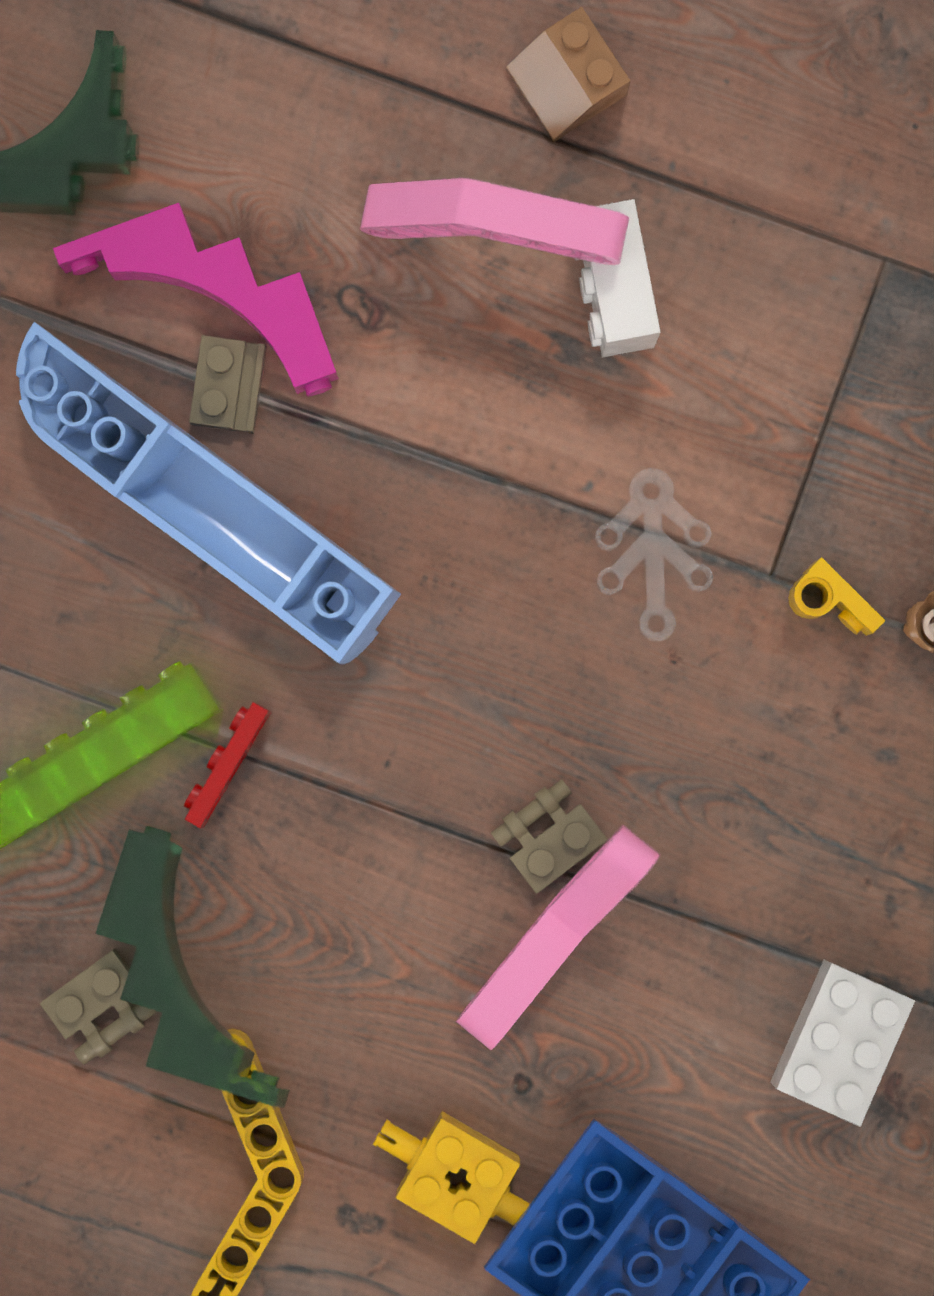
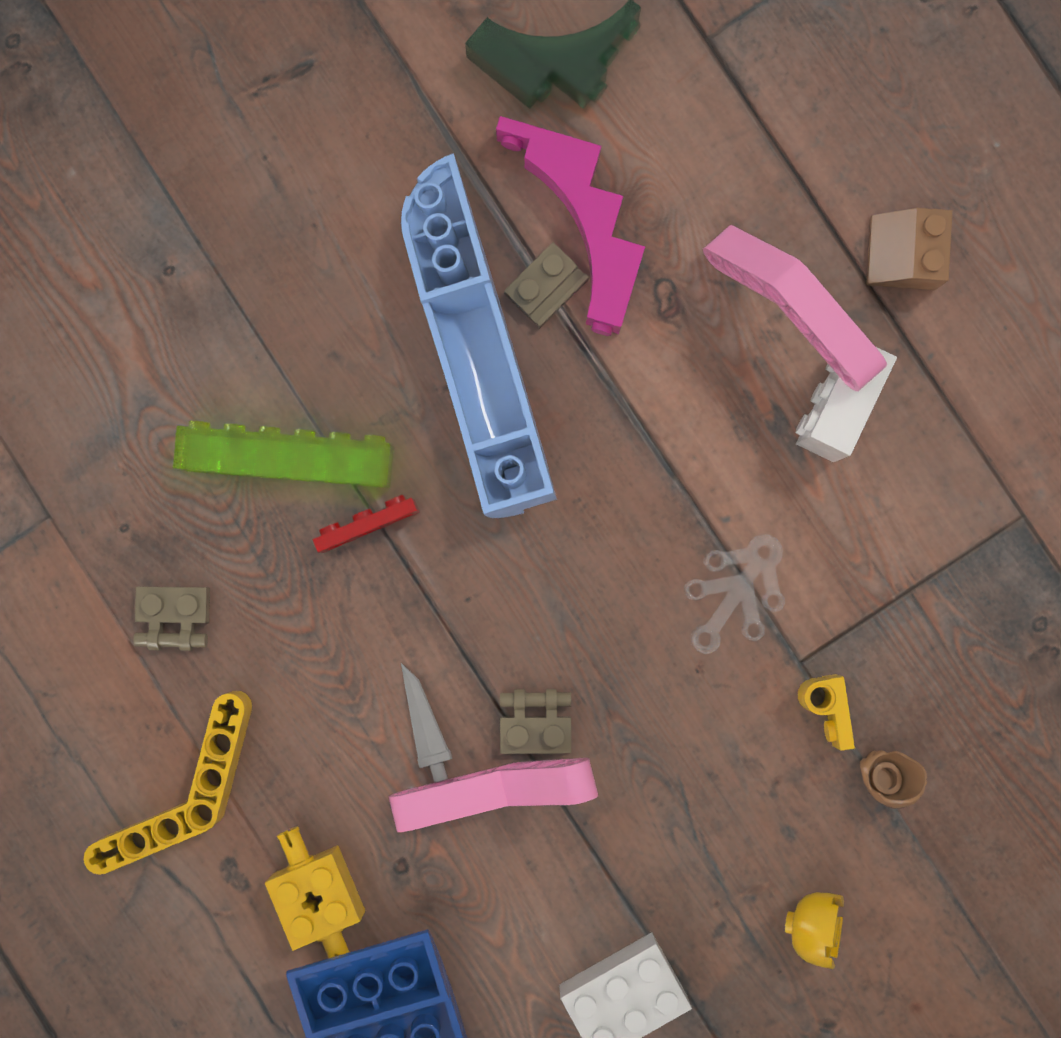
camera: 35 degrees right, 0 degrees up
(188, 1035) = (210, 681): clear green arch -> none
(452, 933) = (428, 737): none -> light grey bar

